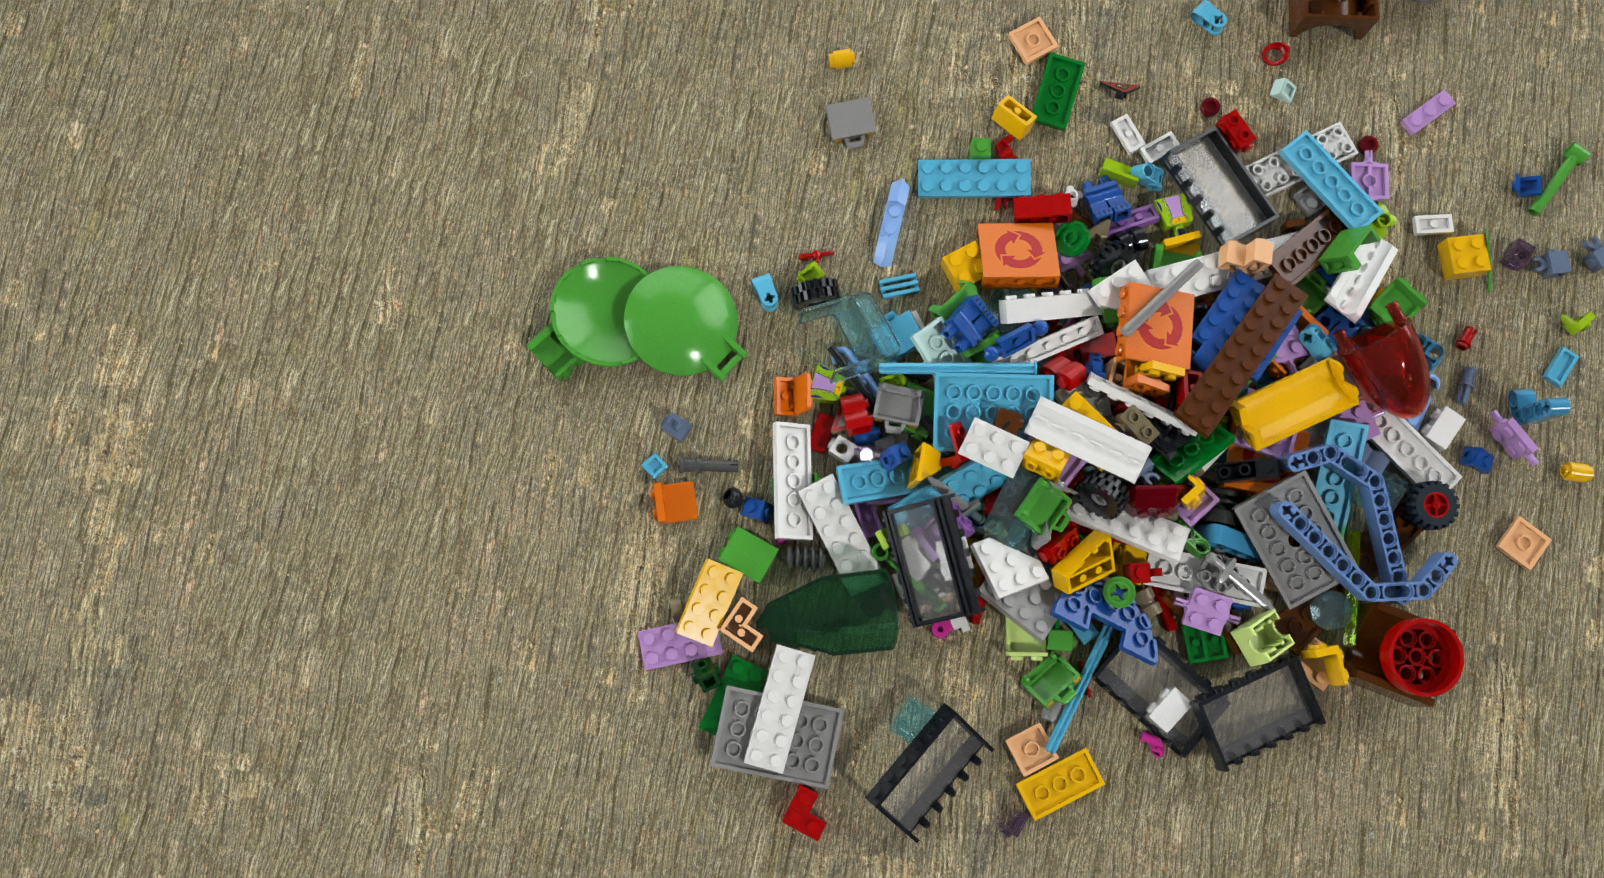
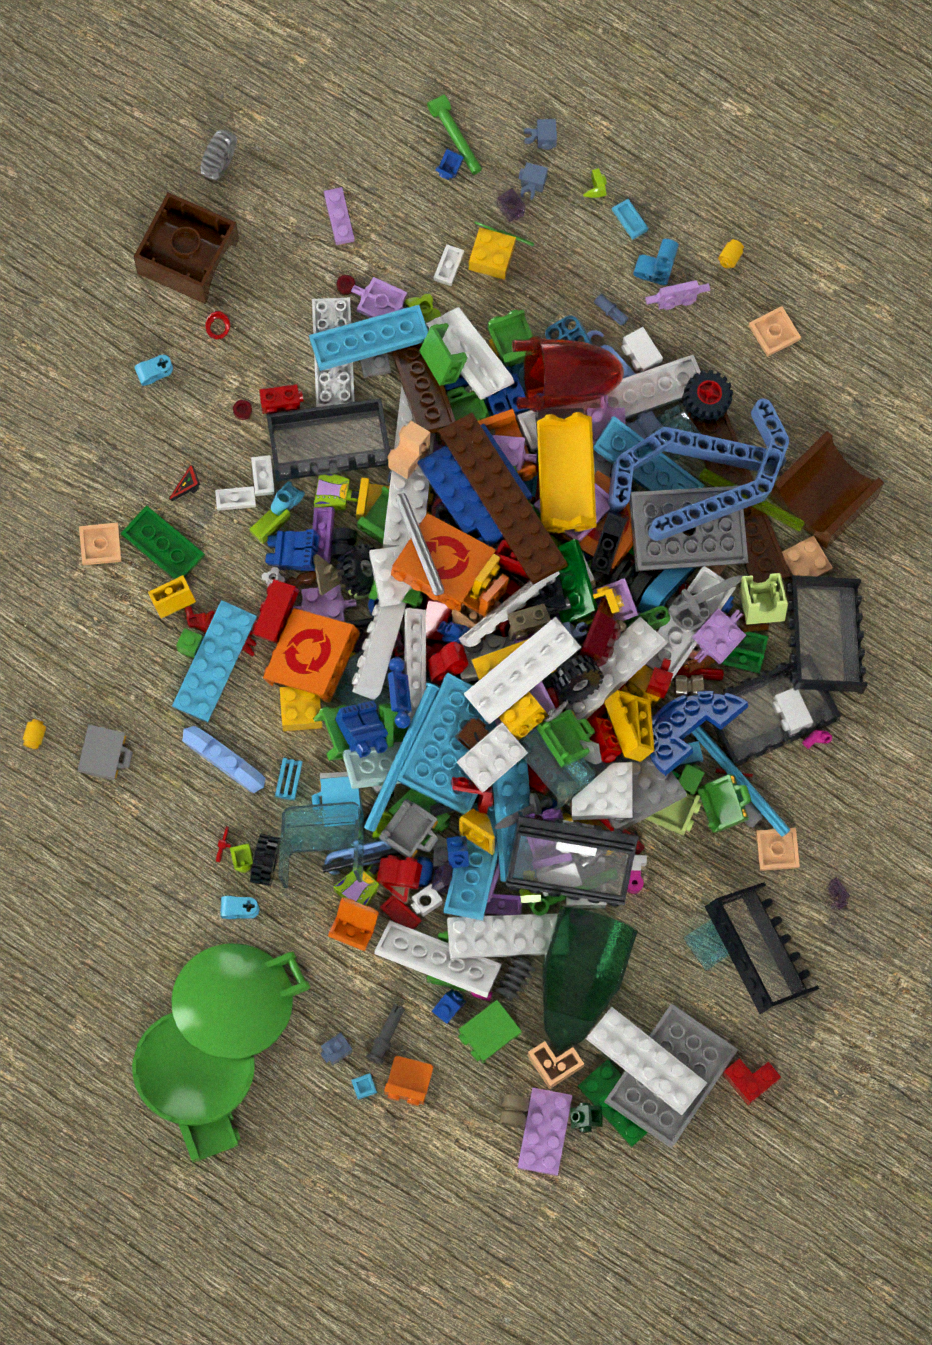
camera: 65 degrees left, 5 degrees down
(709, 602) = (520, 1084): yellow plate -> none
(732, 497) = (427, 1024): black piece -> none
(1060, 784) = (819, 837): yellow plate -> none
(1072, 239) = (319, 597): green tile -> none
(1115, 600) = (676, 712): bright green gear -> none
(1283, 90) = (256, 335): light aqua slope -> none
(1292, 225) = (393, 390): reddish brown tile -> none
(1318, 343) = (518, 424): medium azure piece -> none
(1331, 610) = (764, 527): clear light blue dish -> none
(1333, 662) = (807, 546): yellow bracket -> none
(1439, 641) = (858, 464): red wheel -> none
(1464, 342) = (567, 287): red pin -> none
(1477, 458) = (682, 333): blue bracket -> none

